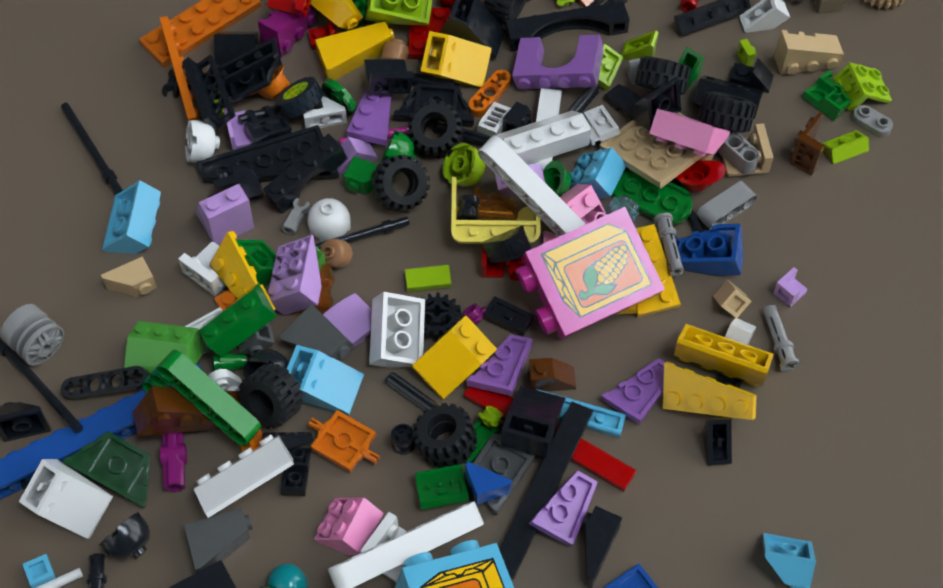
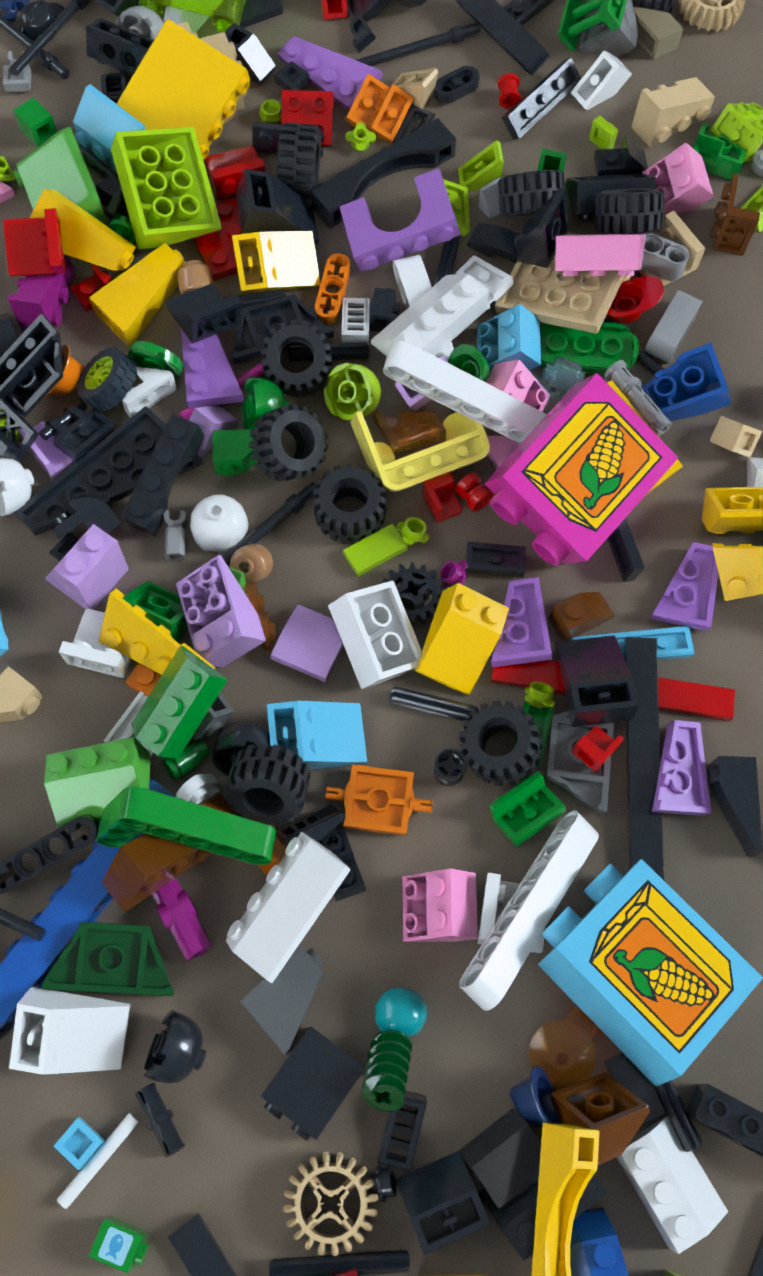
camera: 25 degrees left, 10 degrees up
(318, 333) = (283, 678): dark grey slope -> none
(423, 225) = (349, 483): none -> black tyre
(460, 275) = (413, 530): none -> lime plate
(468, 207) = (388, 445): black wheel -> none
(486, 484) = (579, 785): blue slope -> none
(507, 245) = (462, 473): black slope -> none
(511, 465) = (596, 748): none -> red panel
(605, 344) = (625, 552): none -> black tile
(785, 106) = (682, 180): none -> bright pink slope

